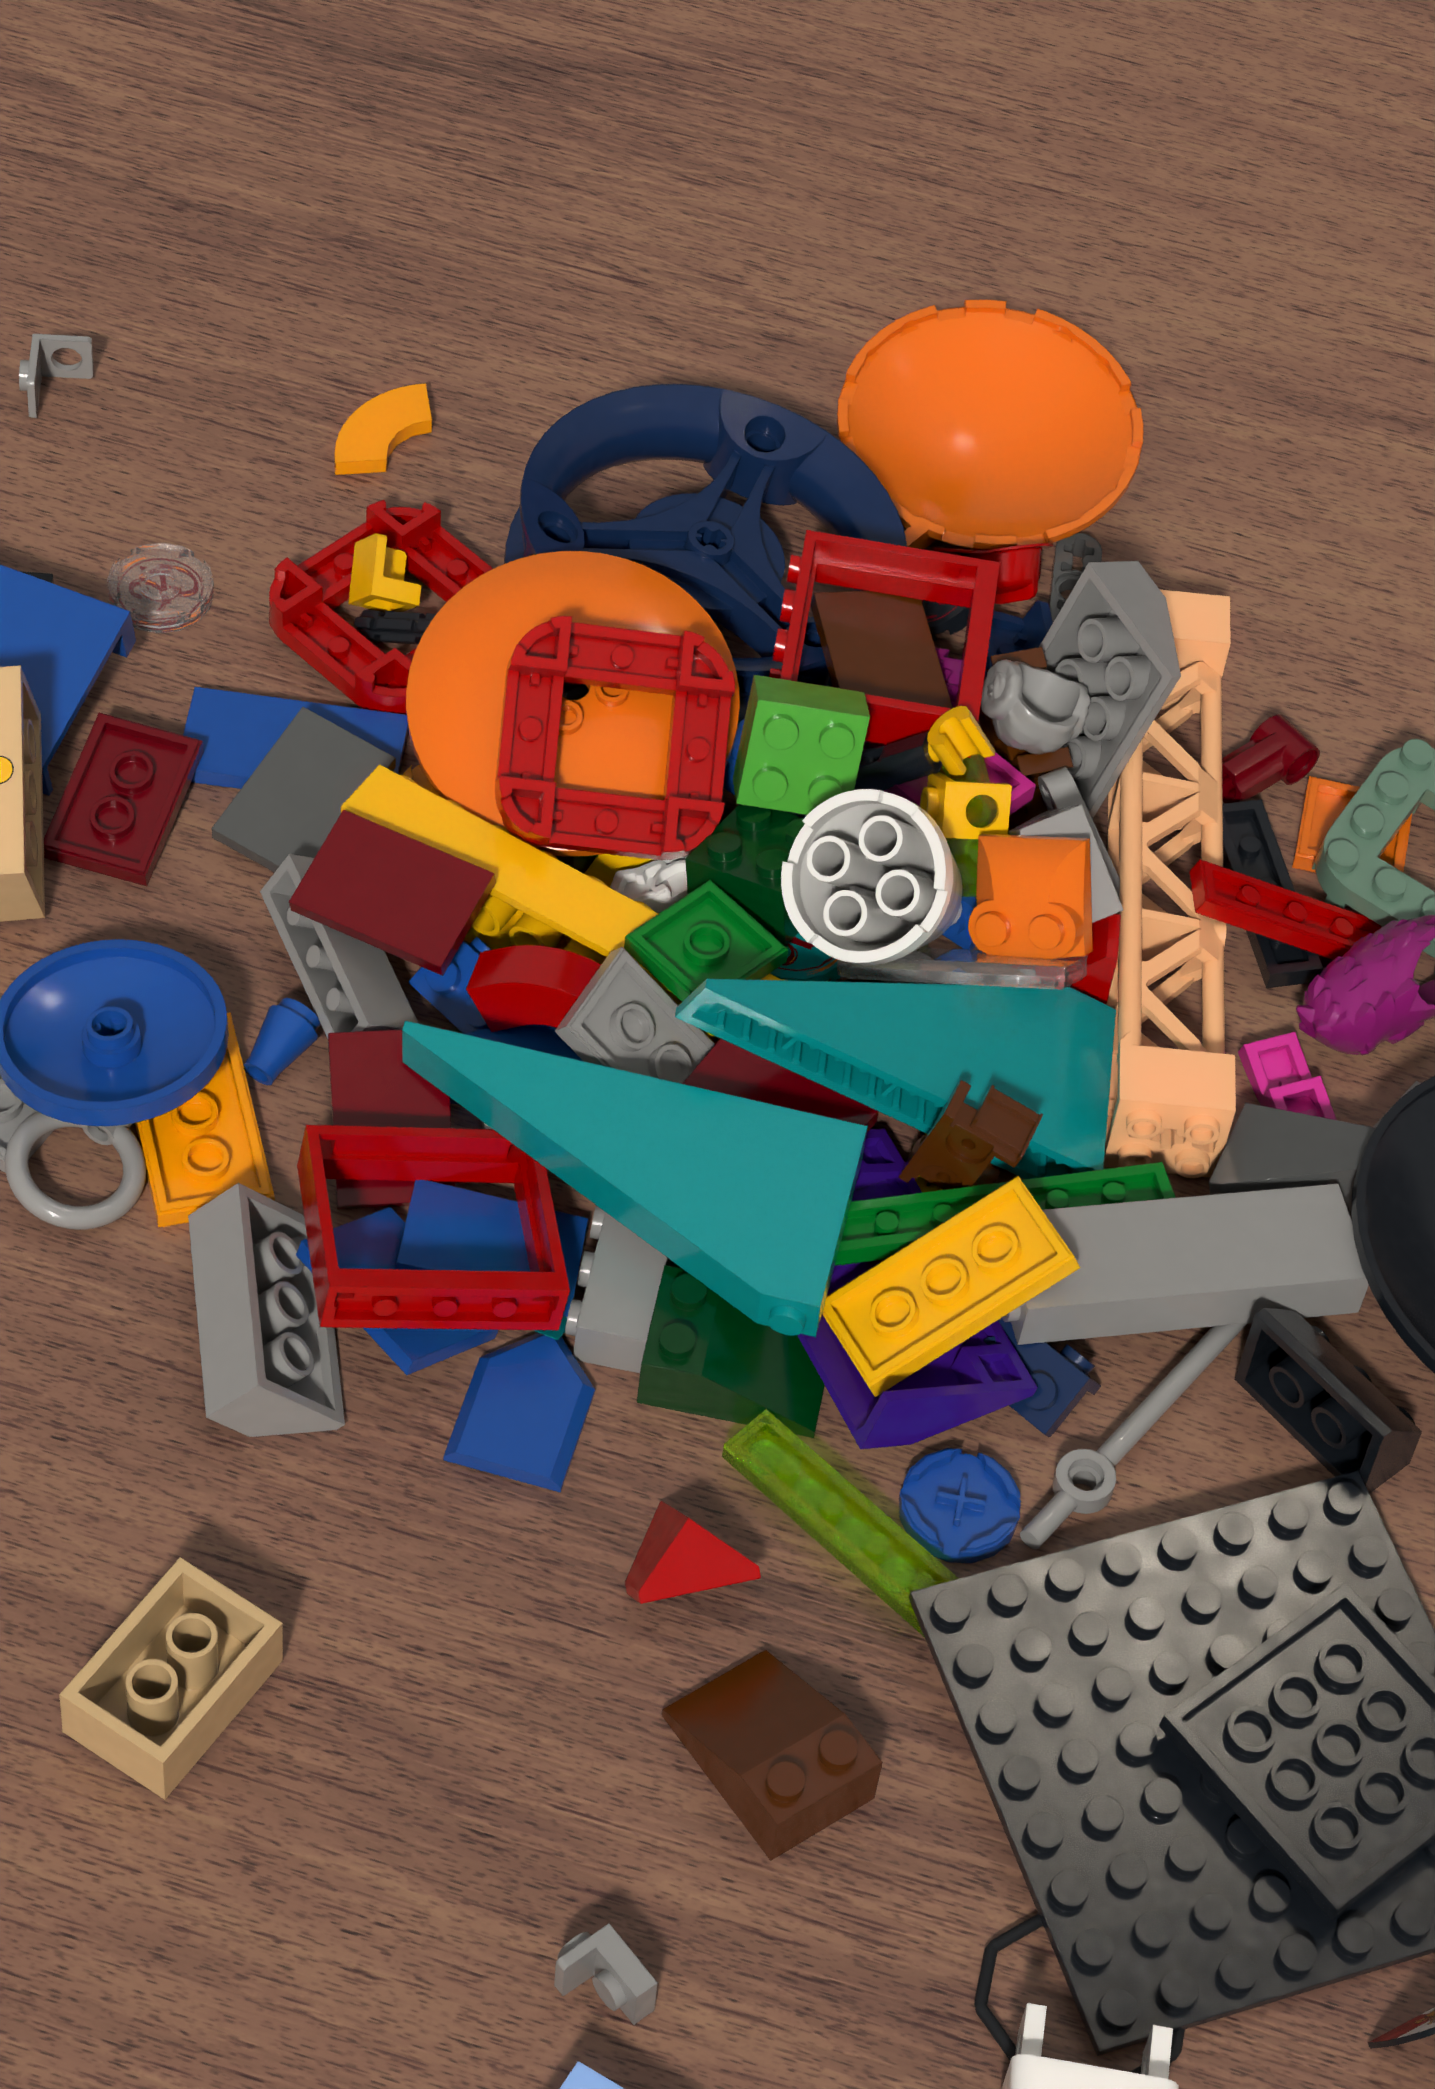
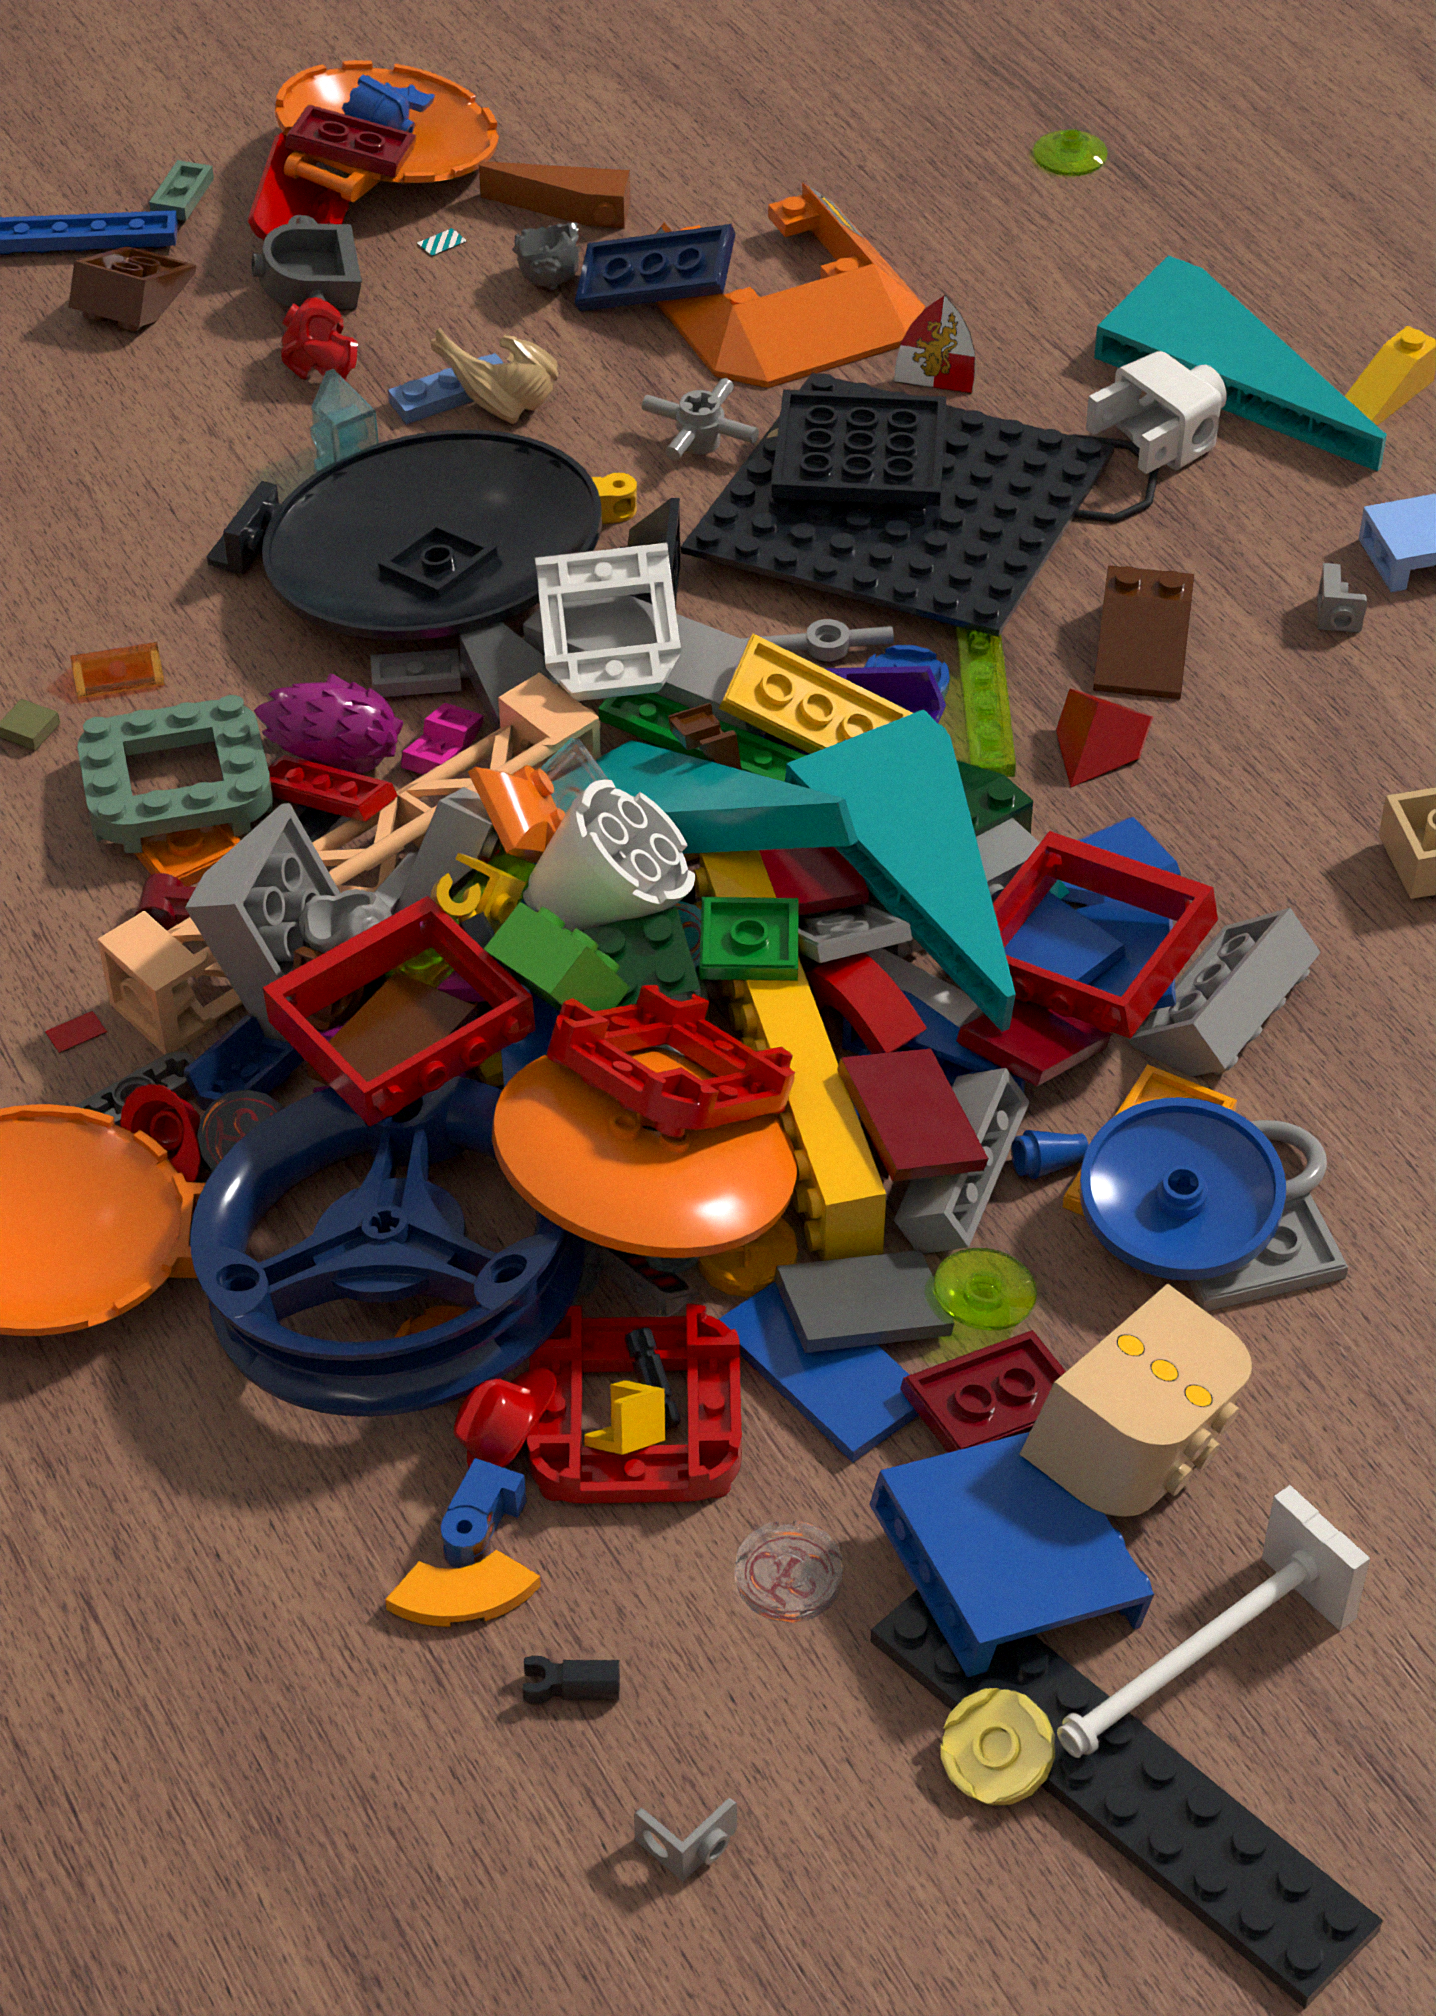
camera: 130 degrees left, 5 degrees down
(209, 854) = (985, 1289): none -> clear neon green dish
(237, 420) = (571, 1680): none -> black bar
(427, 468) = (477, 1511): none -> blue leg
(478, 520) = (501, 1414): none -> red piece
(1318, 1198) = (604, 575): none -> white wedge

